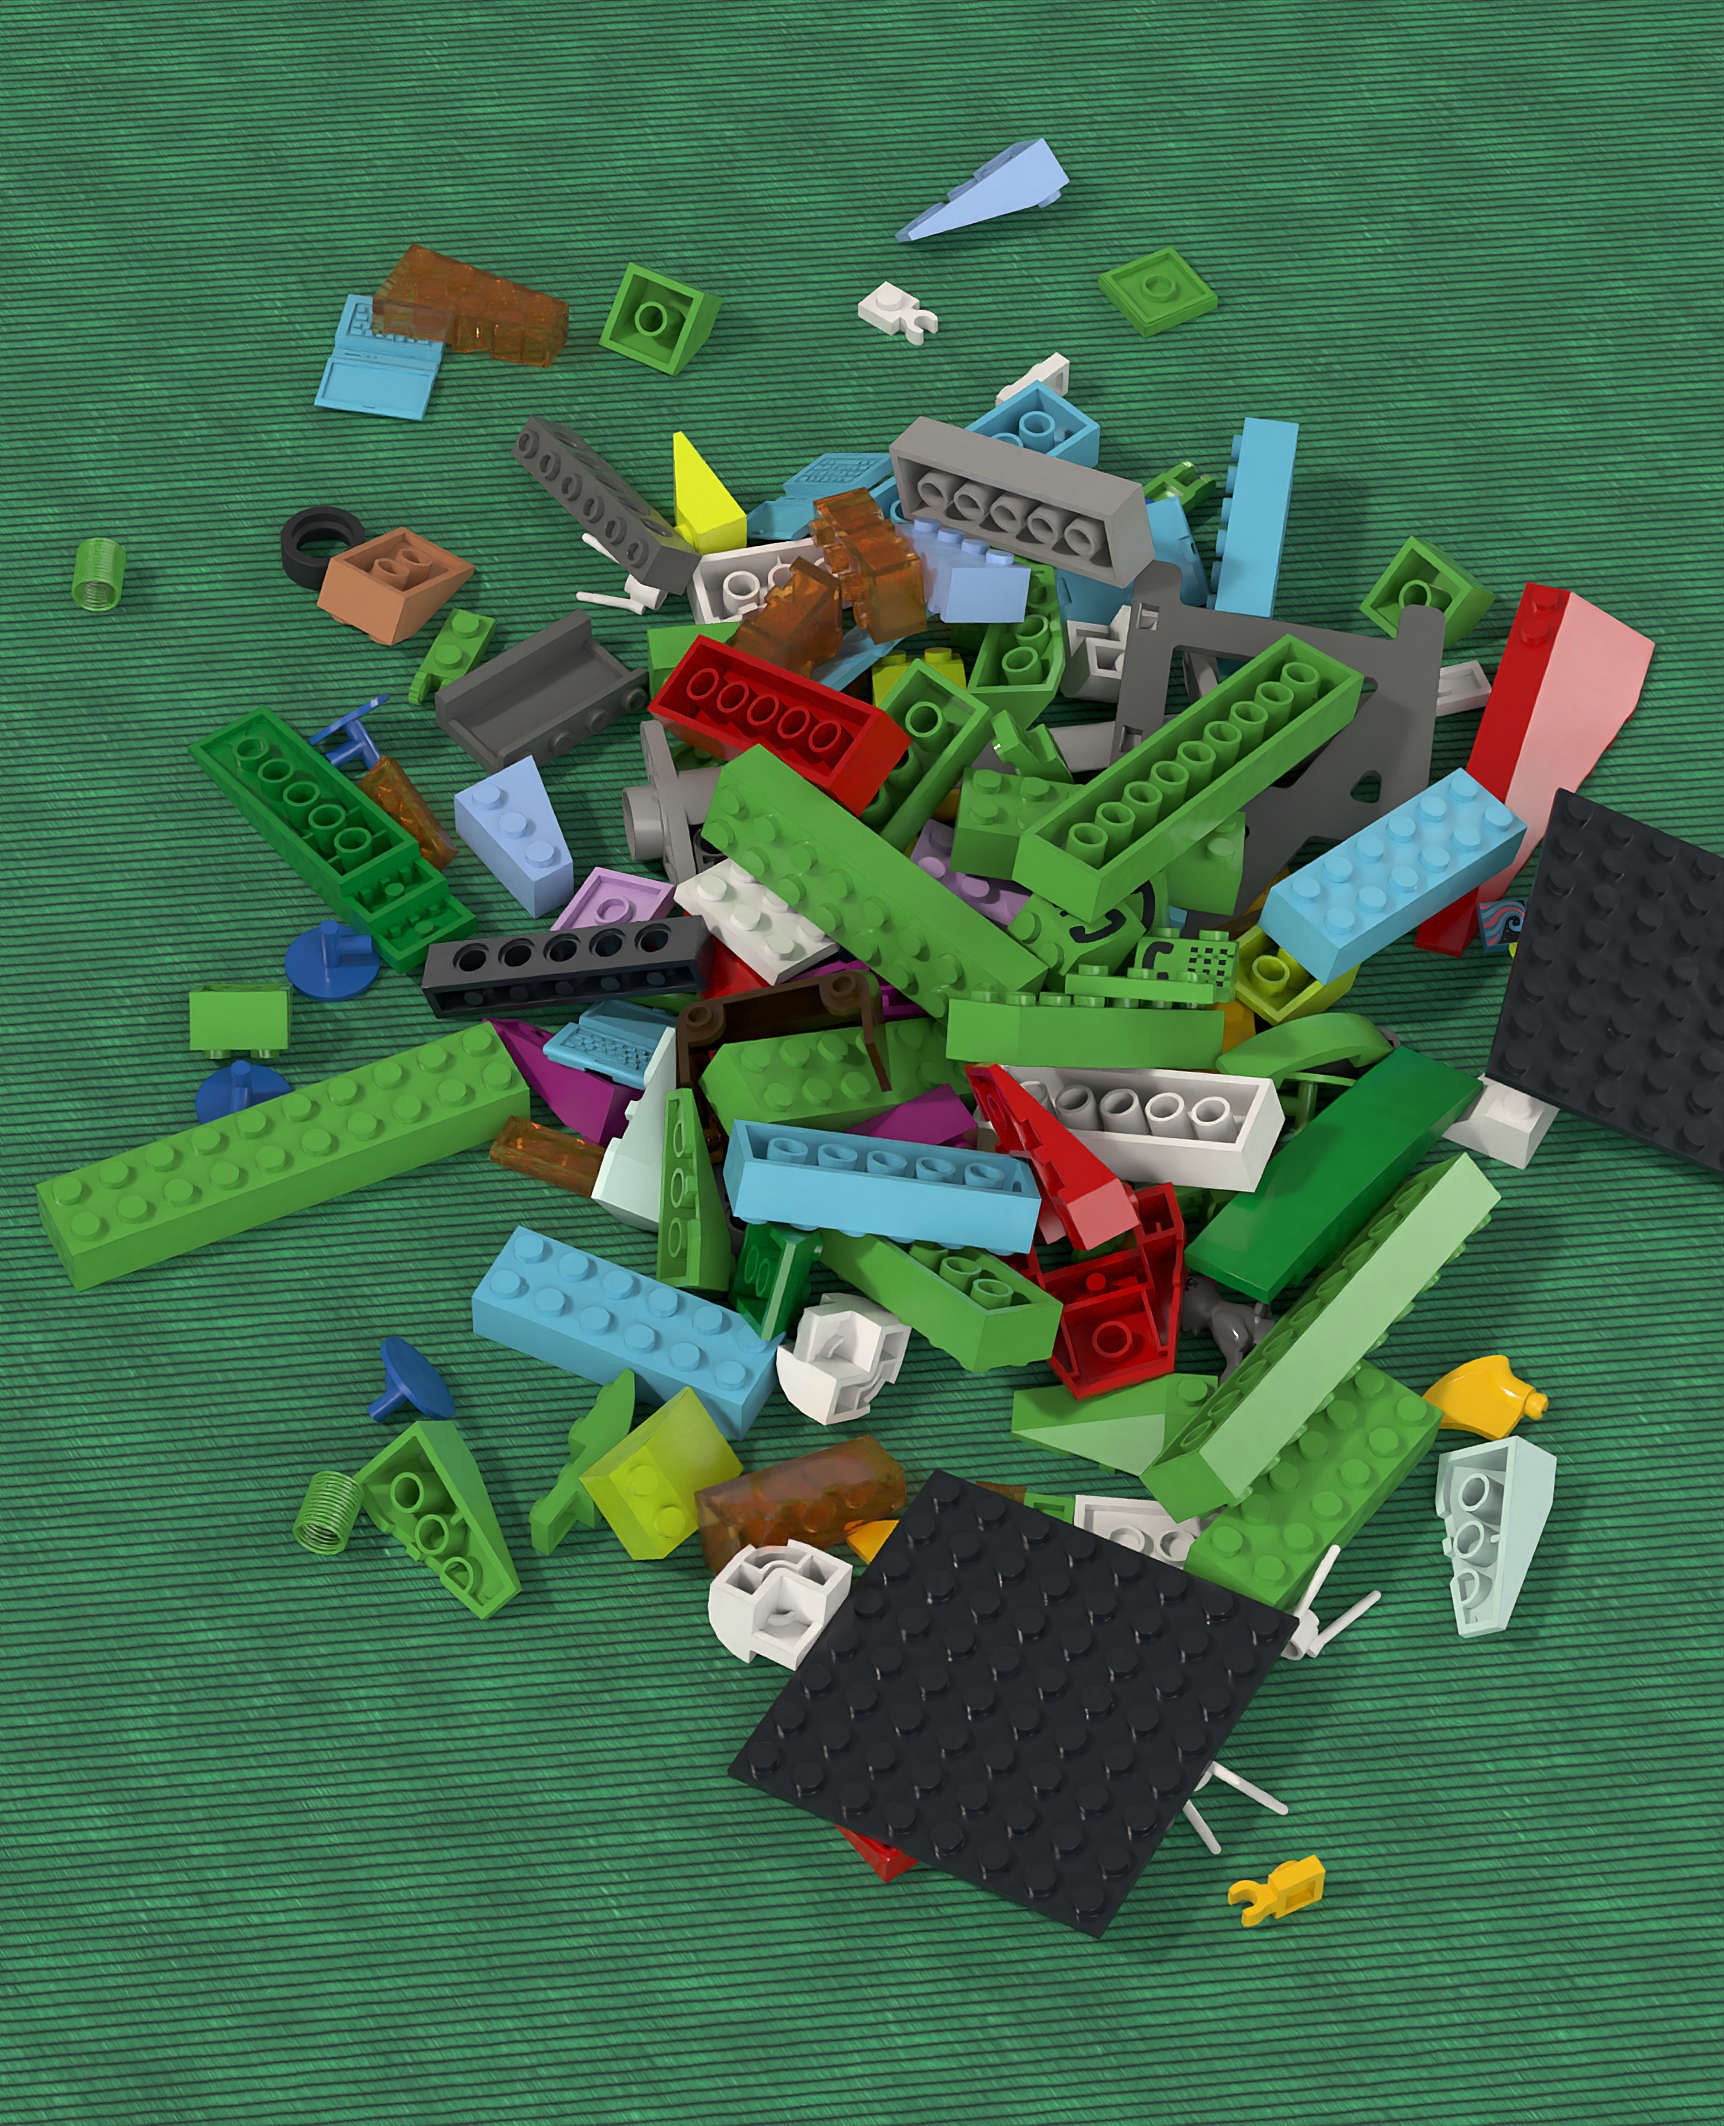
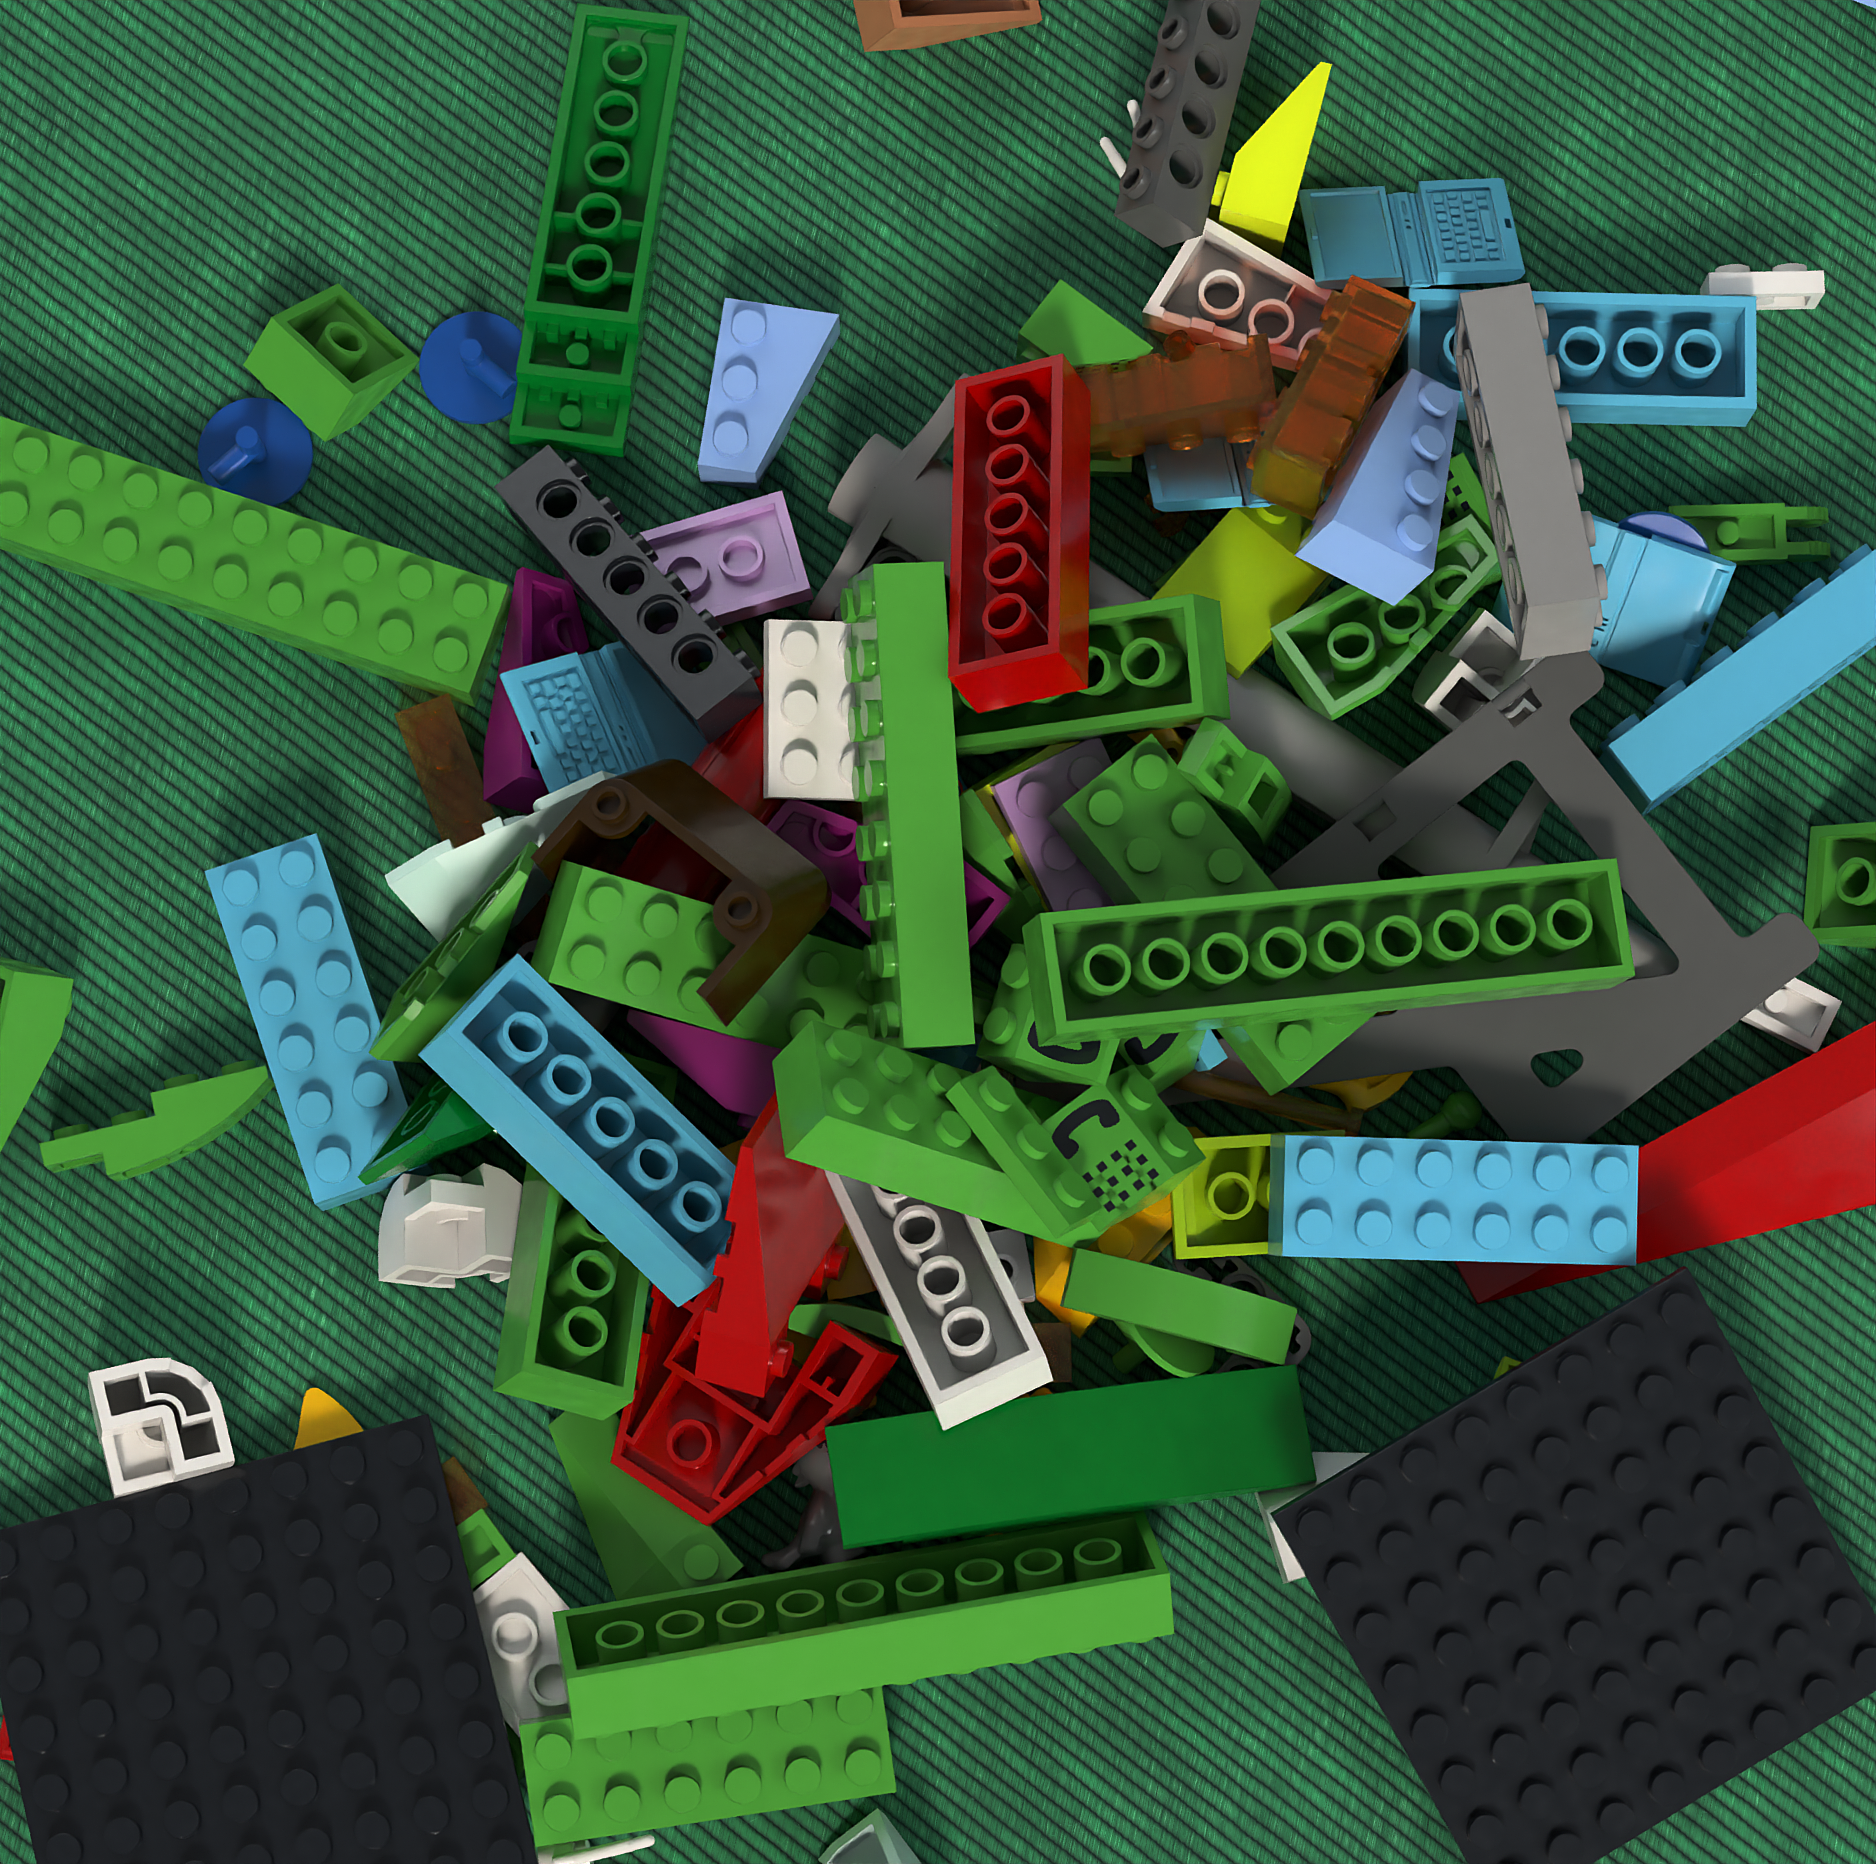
camera: 45 degrees right, 30 degrees up
(360, 741) = (720, 119): blue shield -> none
(396, 795) = (683, 269): clear orange plate -> none
(411, 1378) = (89, 906): blue shield -> none
(453, 653) = (912, 113): bright green hinge -> none
(540, 697) = (937, 241): dark grey panel -> none
(652, 1475) = (189, 1210): lime slope -> none
(803, 1500) = (273, 1344): clear orange wedge -> none
(895, 310) = (1746, 57): white plate -> none
(1485, 1398) = (976, 1786): yellow arm -> none
(1500, 923) = (1543, 1315): tile -> none

